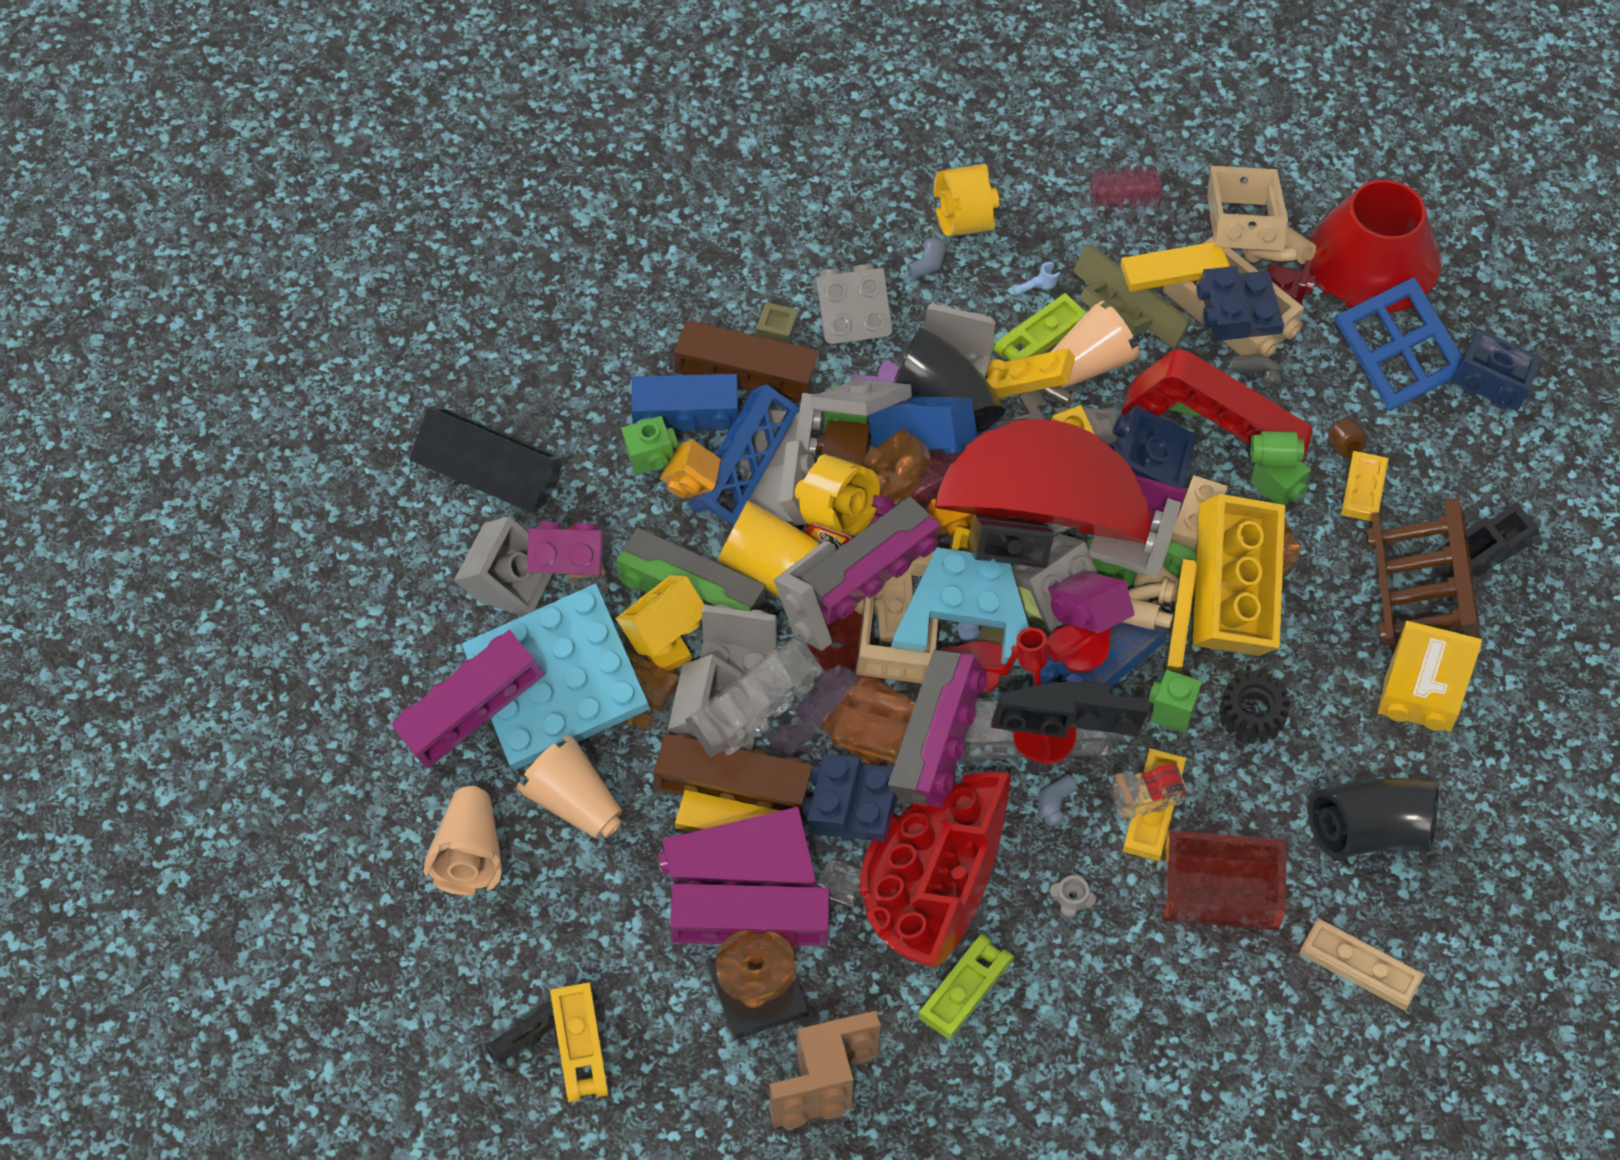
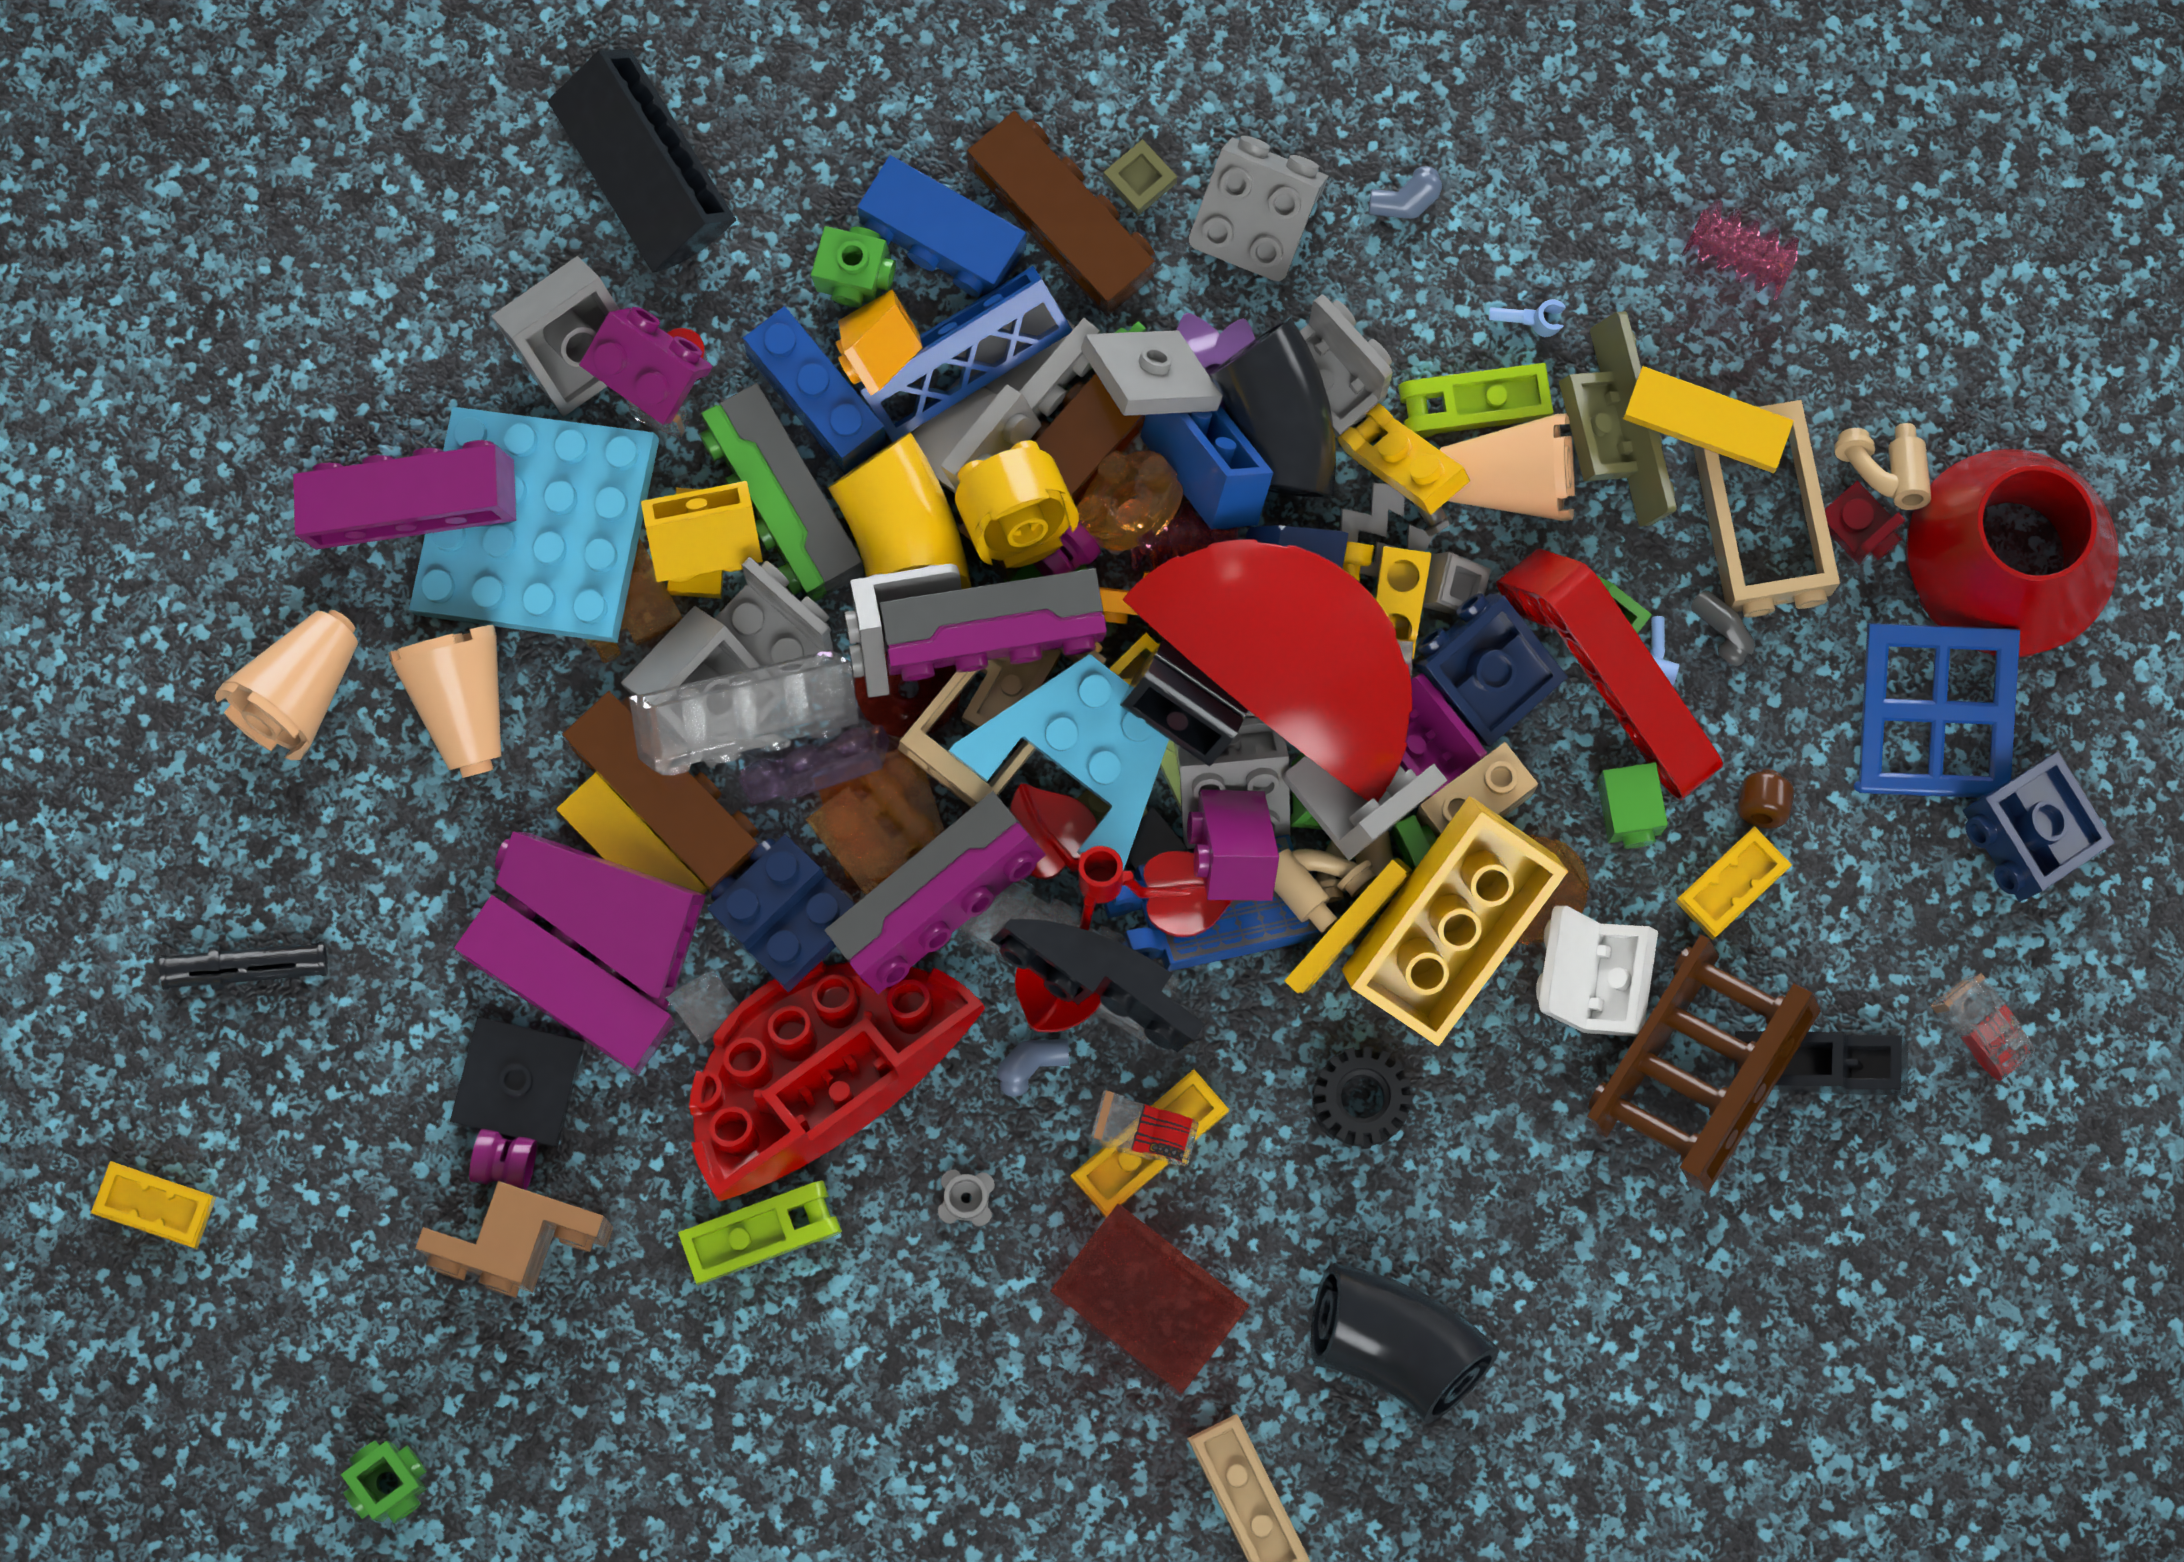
camera: 30 degrees right, 20 degrees up
(578, 1040) = (265, 1020): yellow plate -> none
(673, 517) = (814, 390): none -> blue brick
(760, 985) = (503, 1085): clear orange plate -> none
(780, 1035) = (502, 1160): none -> magenta wheel
(823, 534) = (969, 555): sticker -> none
(965, 200) = (1507, 144): yellow brick -> none
(1174, 700) = (1264, 1028): bright green brick -> none
(1239, 303) = (1751, 529): dark blue plate -> none
(1260, 188) = (1885, 328): tan window -> none
(1277, 449) = (1634, 775): bright green brick -> none
(1335, 567) = (1596, 973): none -> white bracket
(1428, 676) = (1586, 1208): yellow slope -> none
(1551, 478) = (1985, 1025): none -> clear leg

